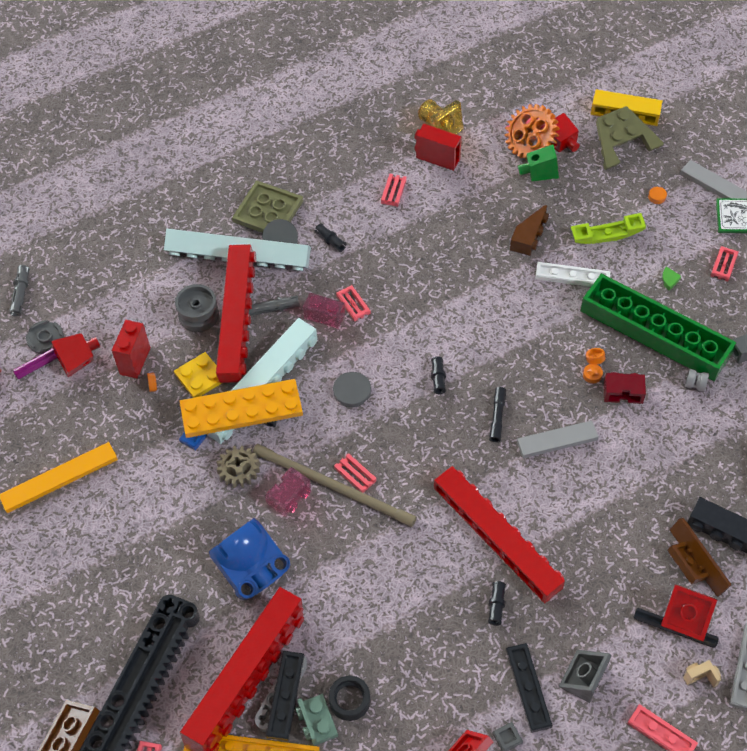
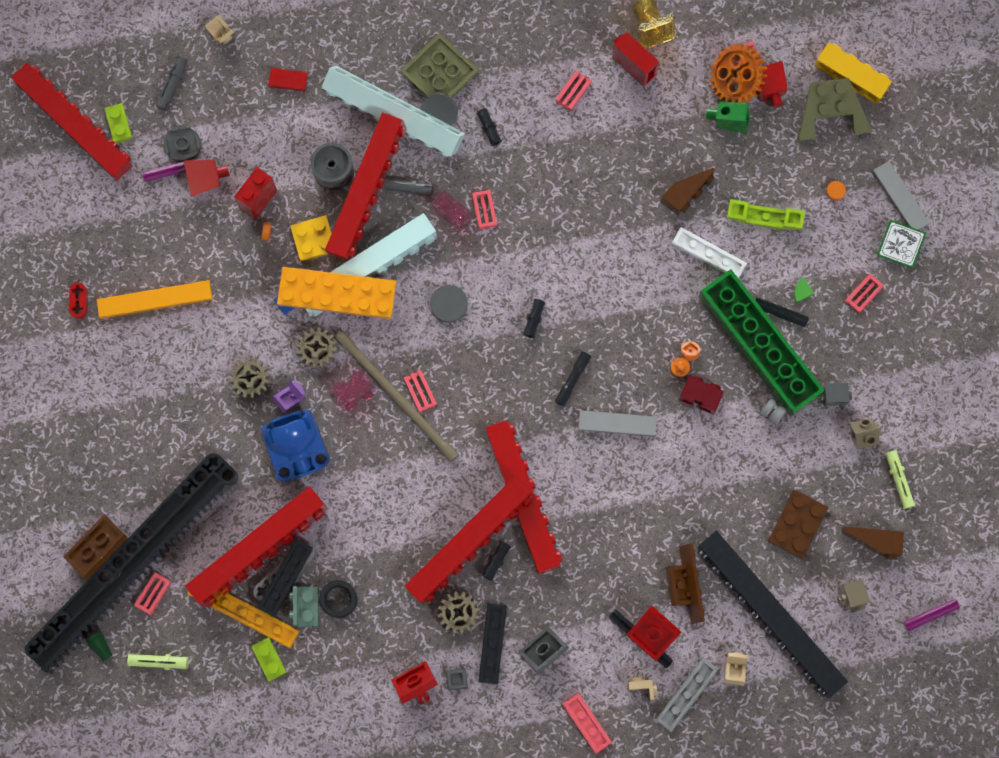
camera: 20 degrees right, 20 degrees up
(52, 236) = (219, 30): none -> tan bracket
(129, 256) = (288, 79): none -> red tile
(179, 524) = (242, 378): none -> dark tan gear
(227, 519) = (289, 397): none -> medium lavender bracket
(462, 589) = (470, 540): none -> red brick
(491, 669) = (466, 618): none -> dark tan gear
(670, 300) = (783, 312): none -> black axle

